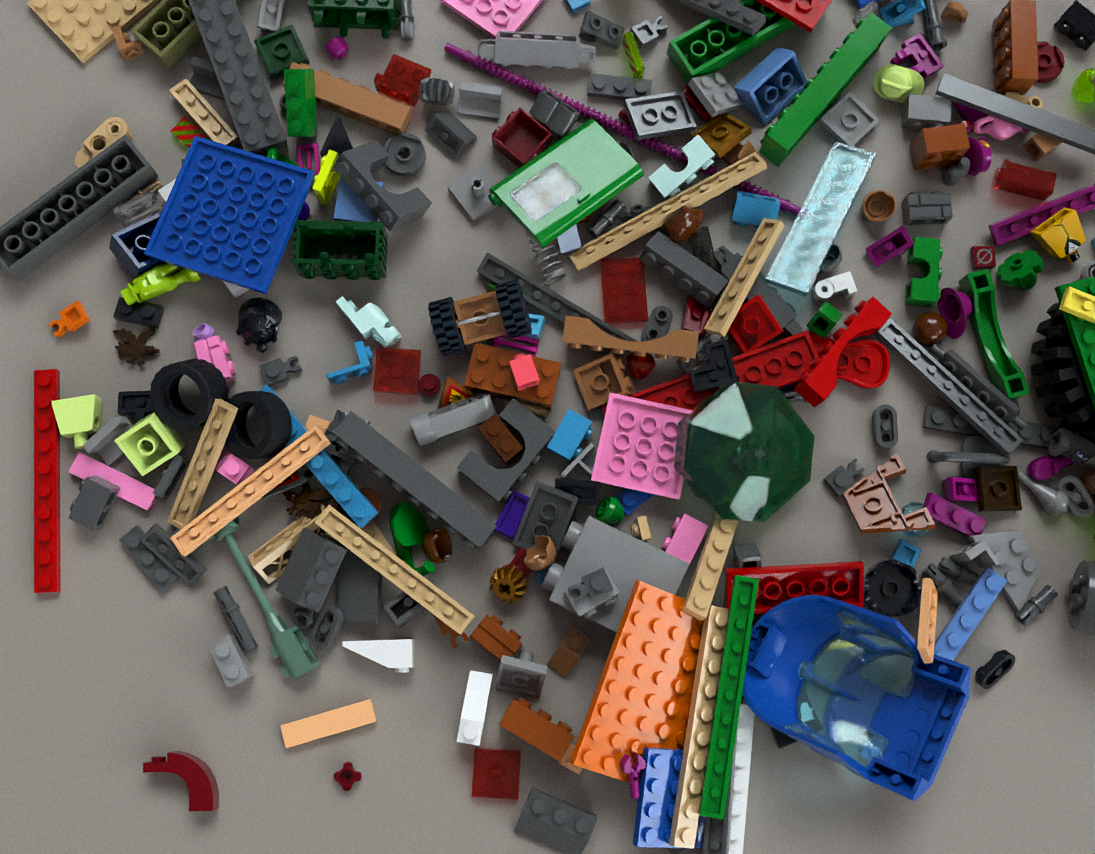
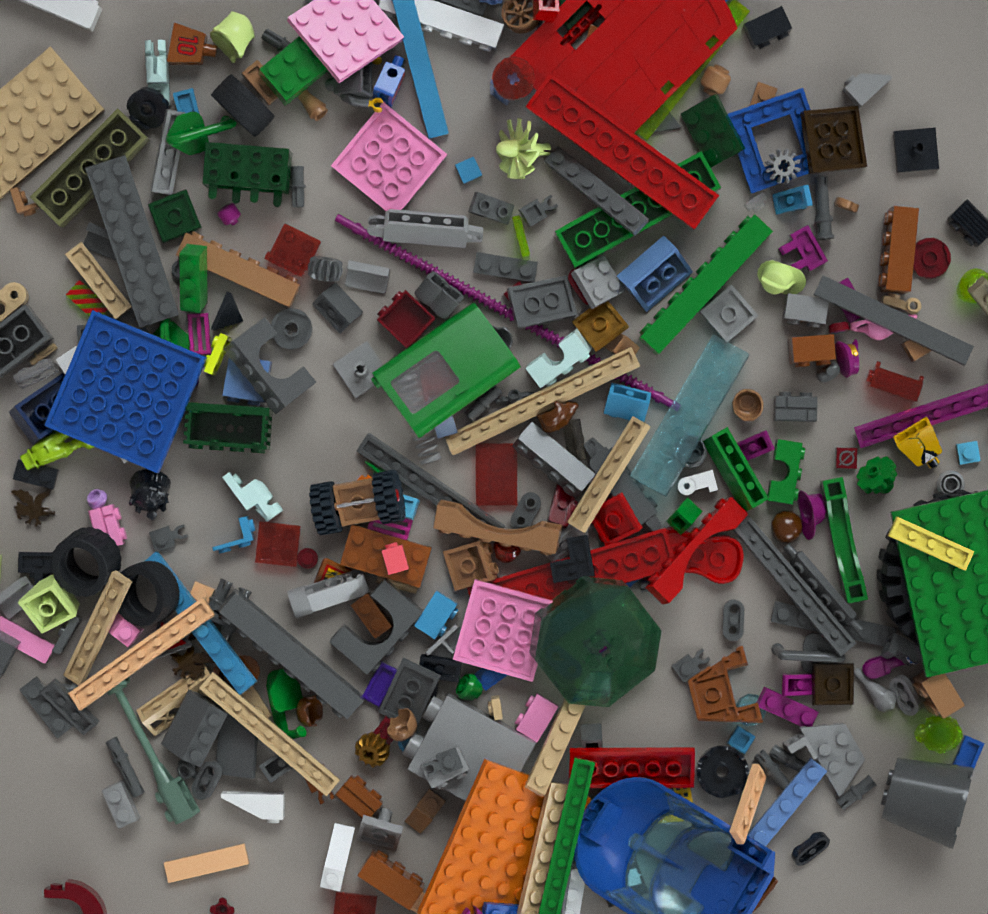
camera: 10 degrees right, 10 degrees up
(873, 269) = (735, 469): none -> green brick

